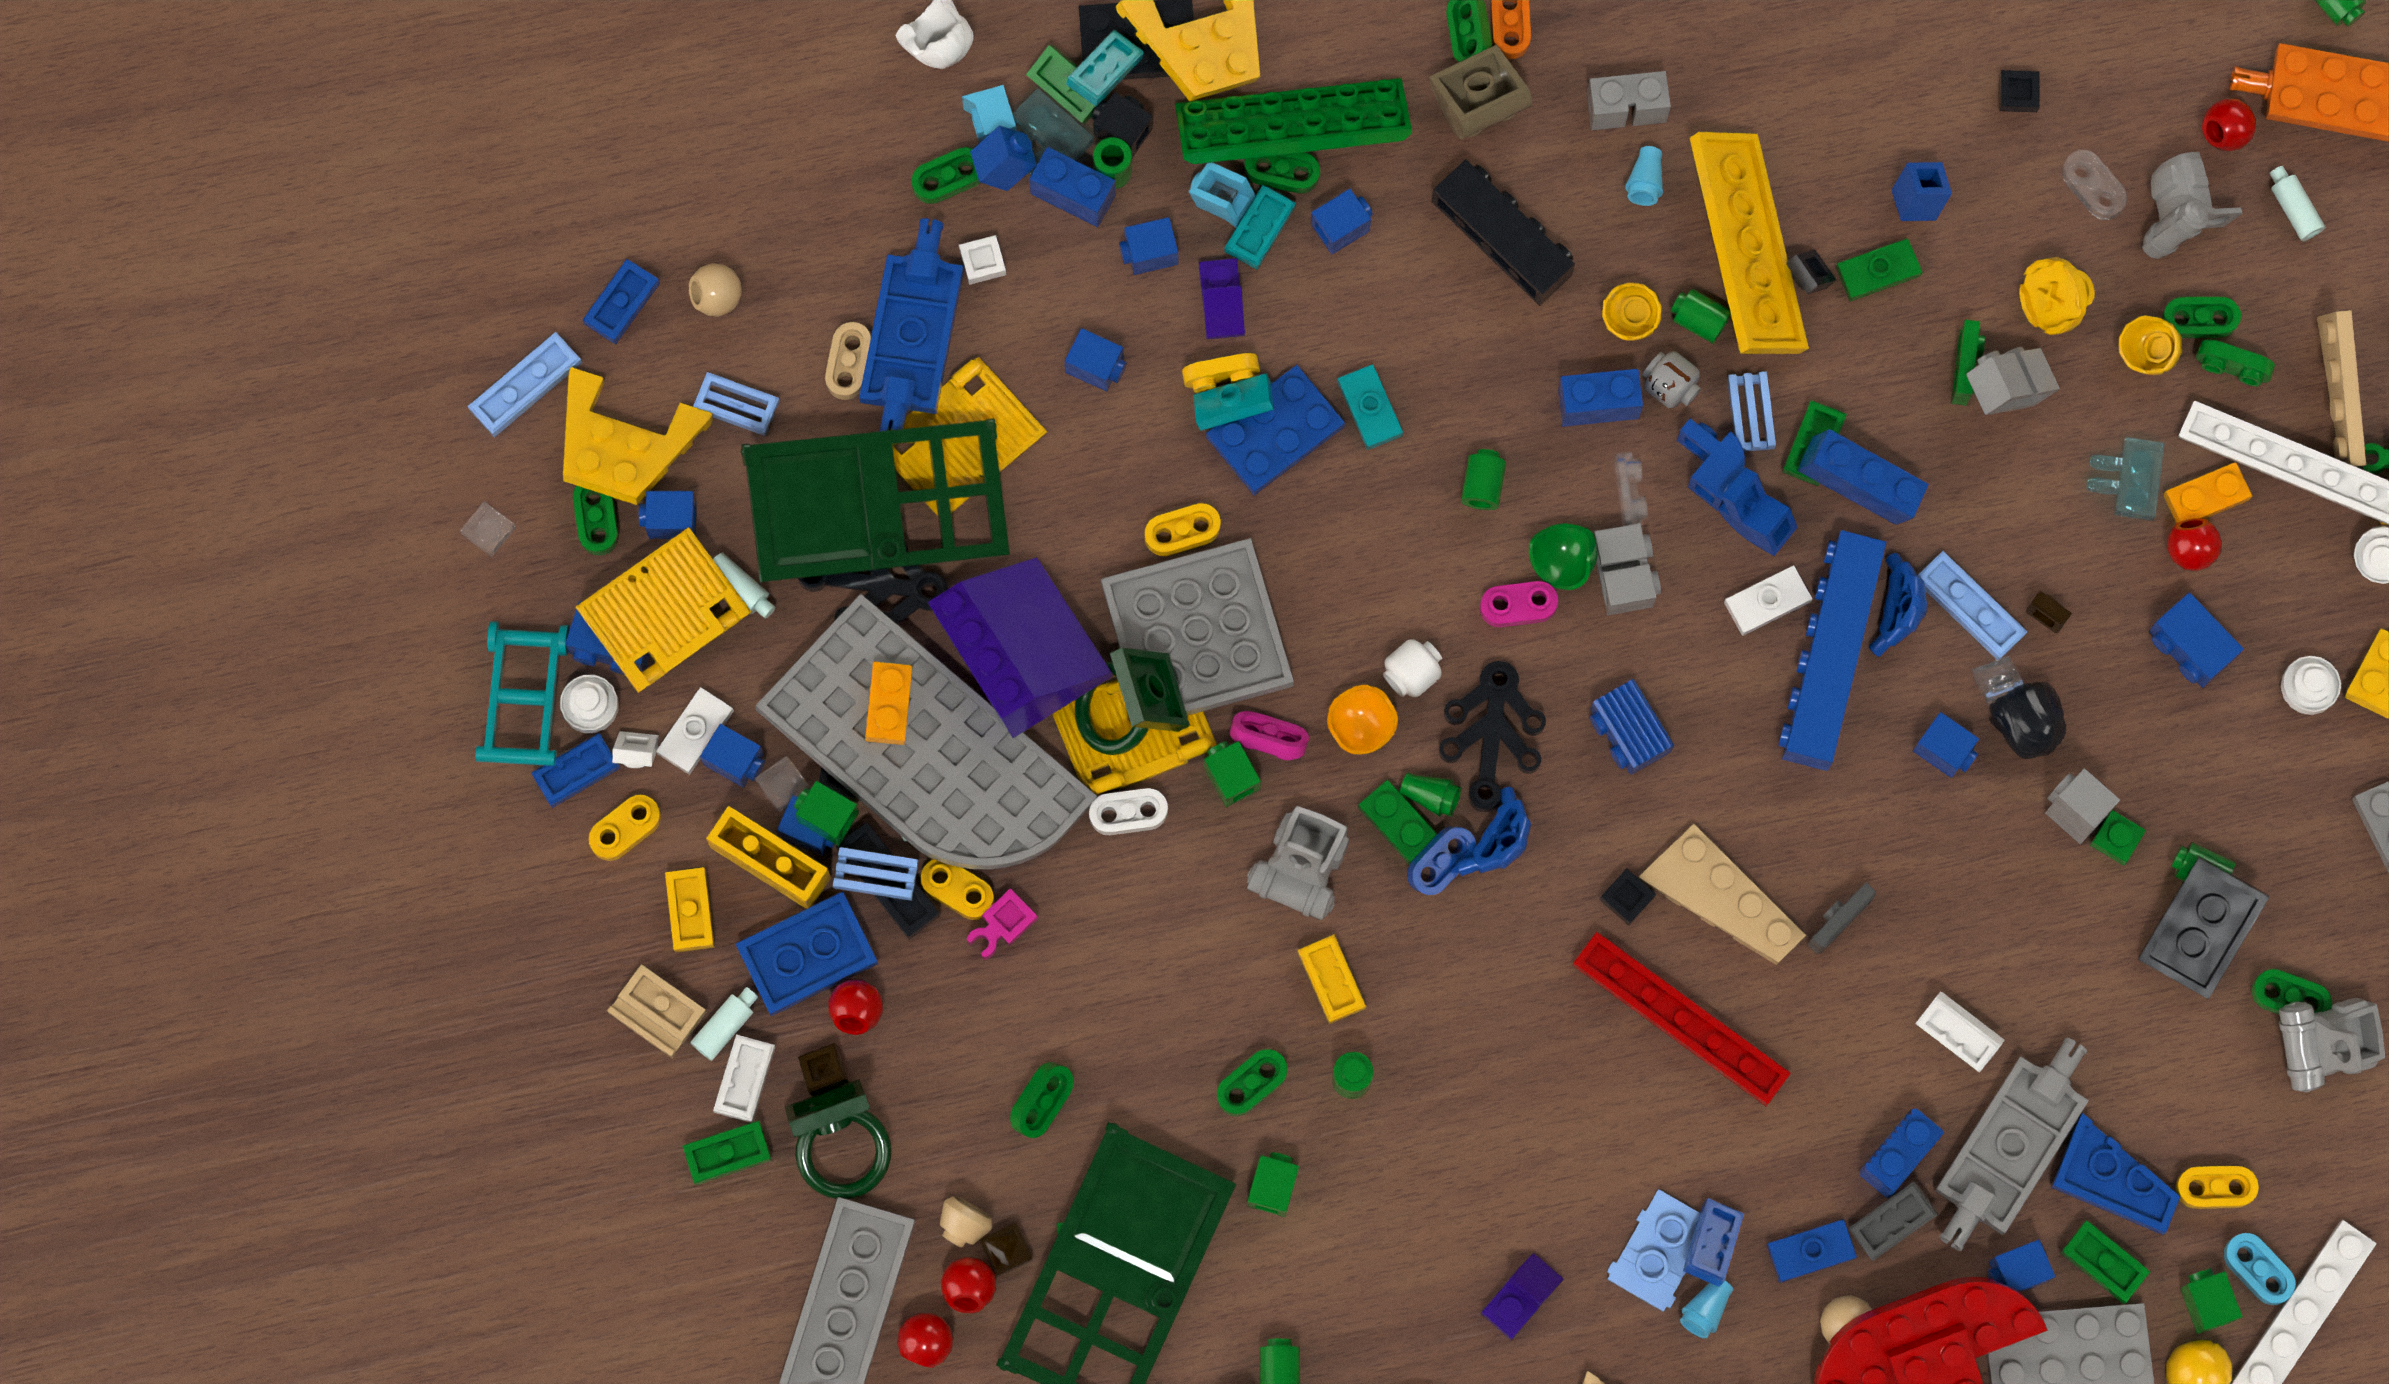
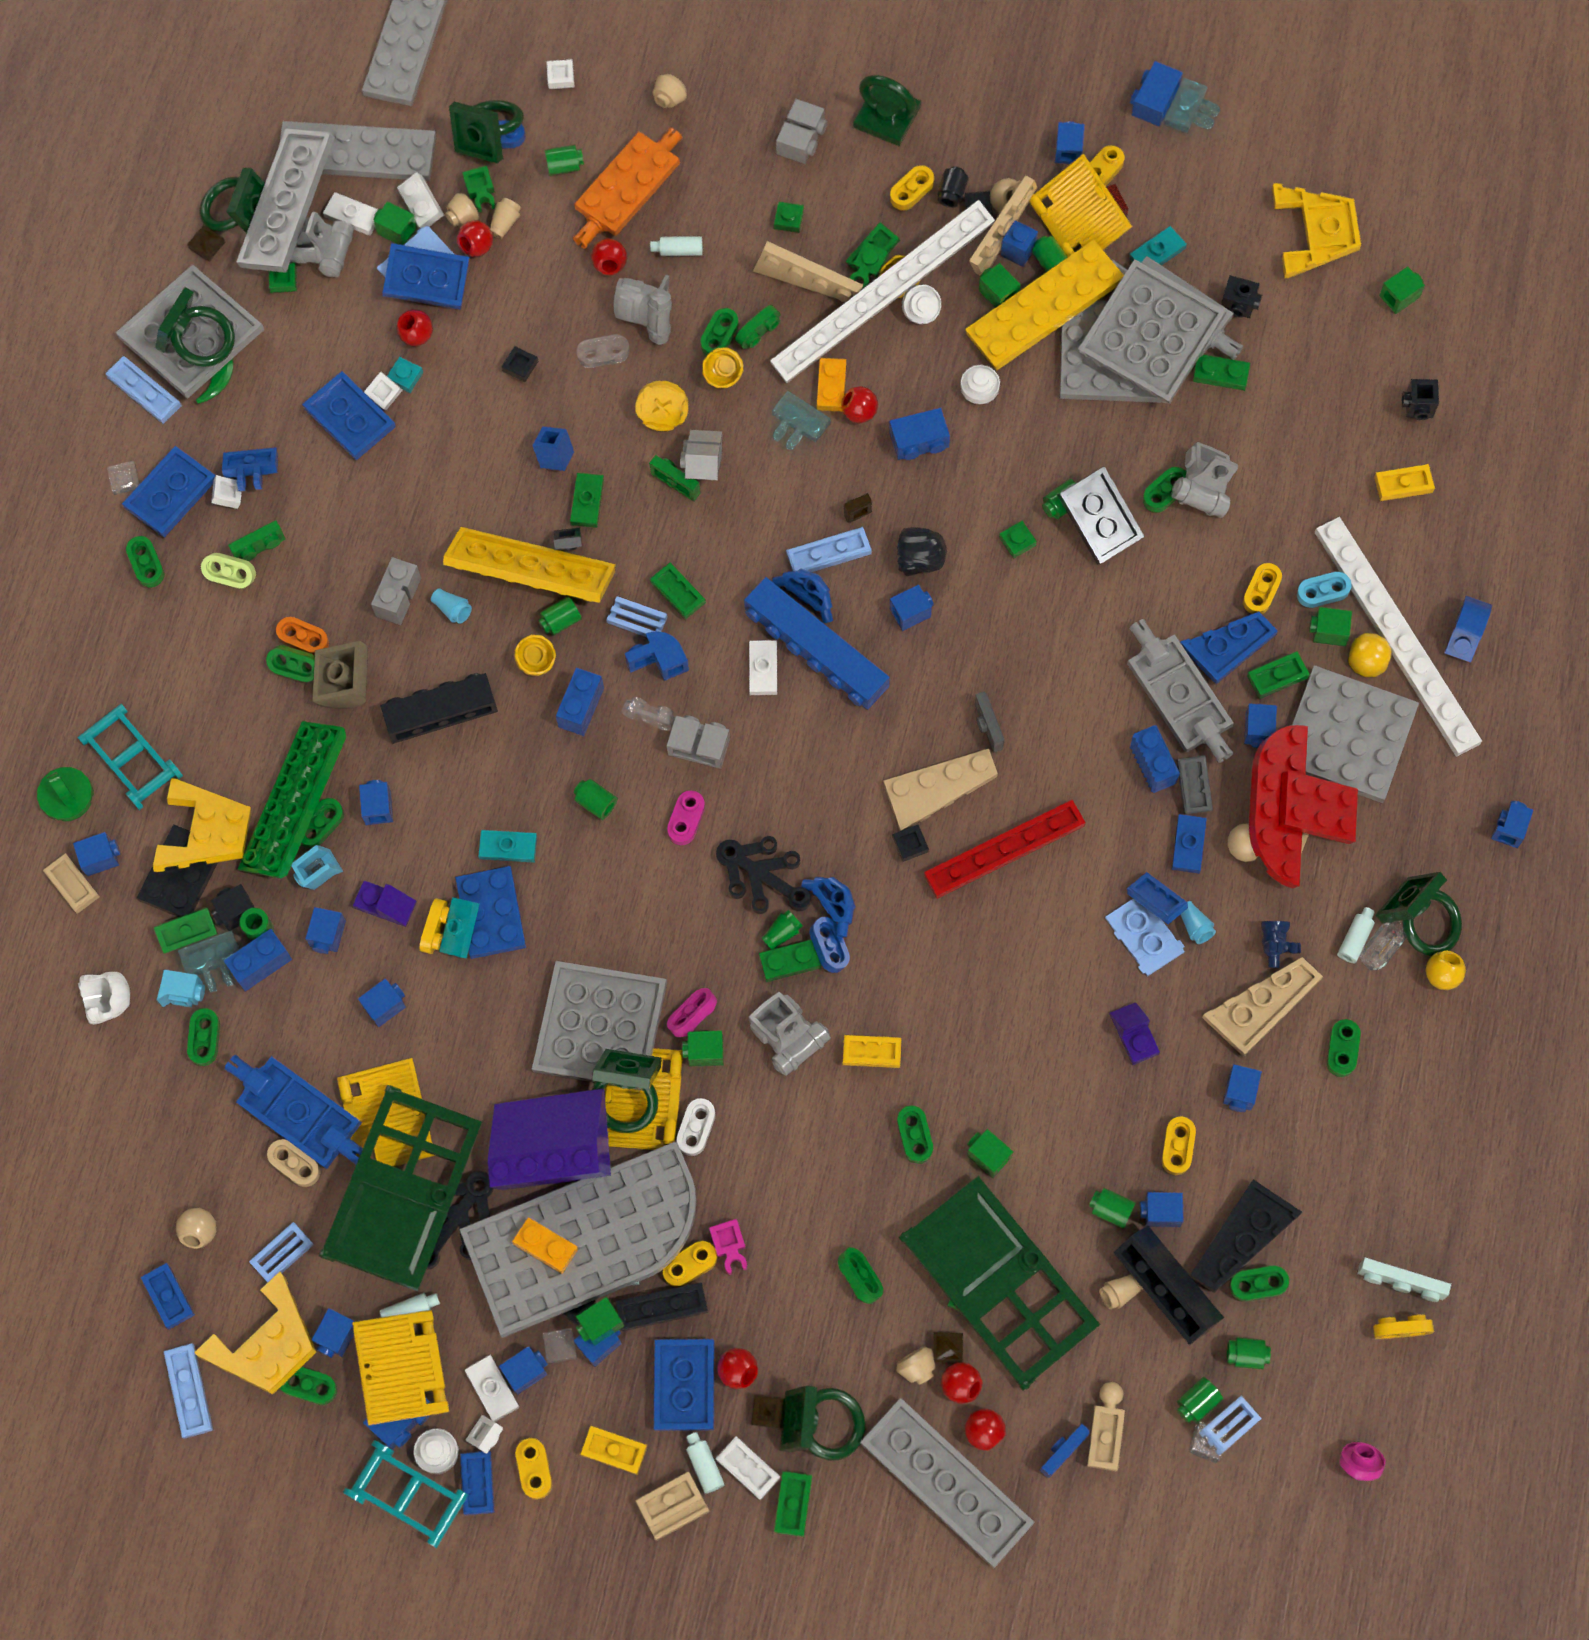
camera: 60 degrees left, 5 degrees down
(487, 529) = (276, 1463): clear plate -> none
(768, 858) = (607, 1378): yellow brick -> none
(876, 858) = (646, 1303): light blue tile -> none
(982, 259) = (273, 1042): white plate -> none
(1003, 158) = (214, 992): blue brick -> none
(1105, 68) = (190, 899): teal plate -> none
(1181, 528) = (526, 1003): yellow plate -> none
(1260, 227) = (351, 855): teal plate -> none
(1352, 1075) = (942, 1067): green brick -> none
(1362, 719) = (712, 948): light orange helmet -> none
(1412, 668) = (695, 901): white head -> none
(1563, 555) = (671, 772): green helmet -> none
(1630, 727) = (803, 788): blue brick -> none
(1672, 379) = (592, 653): light grey head -> none
(1756, 514) = (706, 646): blue brick -> none
(1862, 477) = (717, 570): blue brick -> none
(1960, 1031) = (1094, 688): white plate -> none
(1996, 678) = (884, 558): clear plate -> none
(2080, 804) = (990, 546): light grey piece -> none

